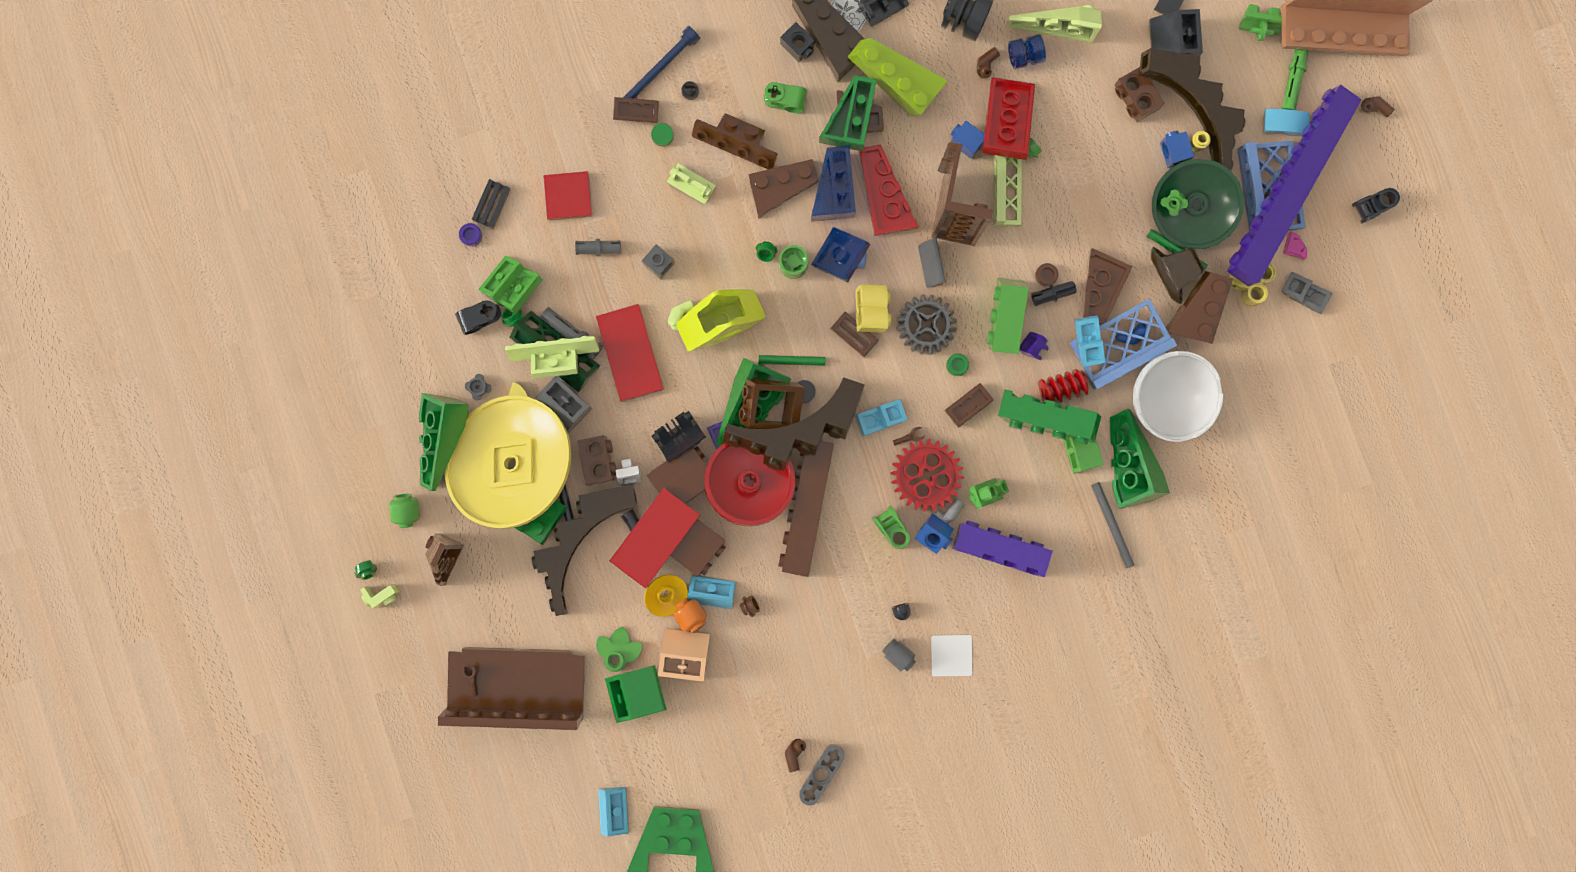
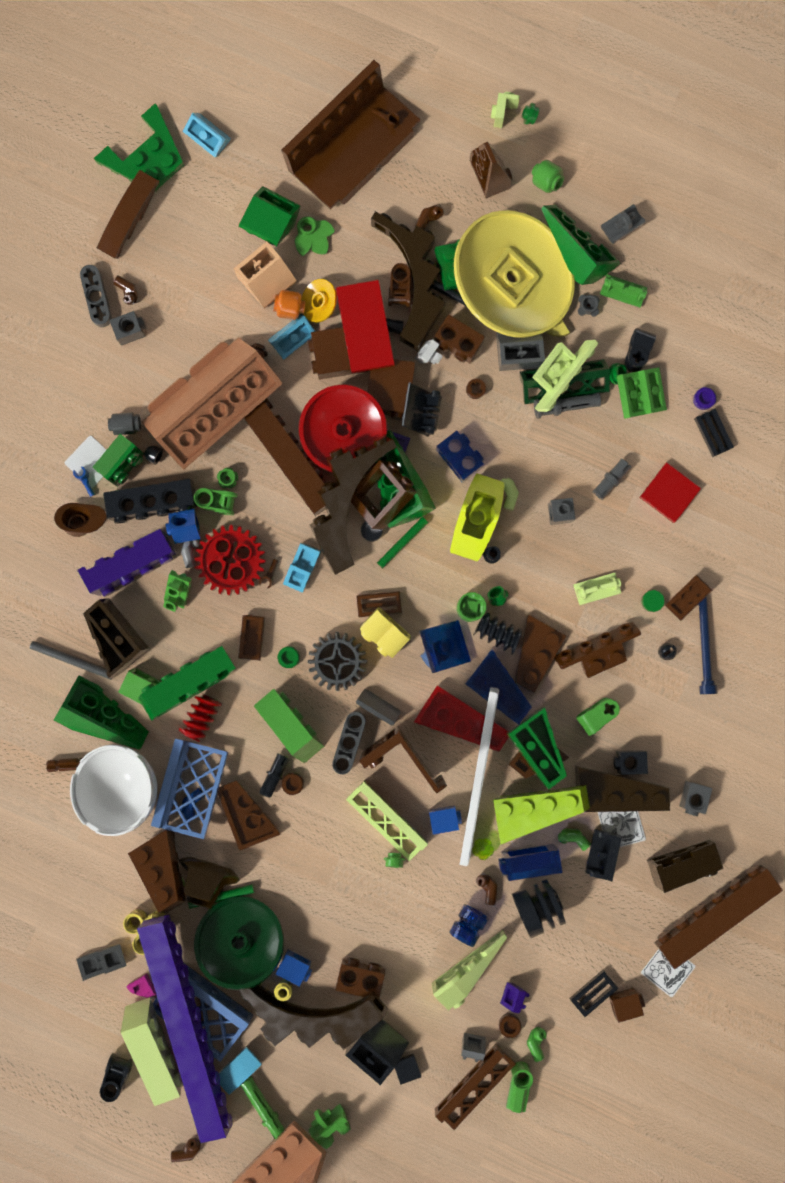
camera: 135 degrees right, 0 degrees up
(390, 417) = (622, 224): none -> dark grey hips
(441, 370) = (623, 291): none -> bright green hinge
(518, 575) = (429, 214): none -> reddish brown arm
(597, 542) = (399, 289): none -> reddish brown piece
(616, 409) = (469, 389): none -> reddish brown bush
(629, 352) = (514, 433): red tile -> none
(691, 376) = (455, 459): none -> clear blue brick
(734, 810) = (127, 213): none -> reddish brown slope
(738, 277) = (488, 558): none -> black pin
(792, 224) = (499, 632): none -> black piece
(822, 603) = (205, 407): none -> nougat piece
(828, 732) = (119, 324): none -> dark grey brick
(867, 531) = (221, 476): none -> bright green plate
(890, 35) = (574, 835): none -> bright green arm
(913, 140) = (479, 776): none -> white tile
(932, 632) = (119, 460): none -> green slope
(940, 47) = (530, 862): none -> clear blue window
(964, 87) = (489, 849): none -> clear neon green plate
(965, 604) = (116, 500): none -> black brick
(970, 646) = (84, 478): none -> blue hand
(987, 255) = (342, 751): none -> dark grey beam
(1003, 617) = (79, 518): none -> reddish brown piece
(1008, 118) = (430, 863): red tile -> none
(1033, 345) = (250, 724): dark purple tile -> none
(1065, 507) = (114, 636): none -> dark brown wedge
(1089, 341) = (214, 766): medium azure slope -> none
(1176, 196) = (255, 932): bright green plate -> none
(1192, 455) = (62, 765): none -> reddish brown axle
(1333, 195) = (150, 1051): none -> yellowish green wedge

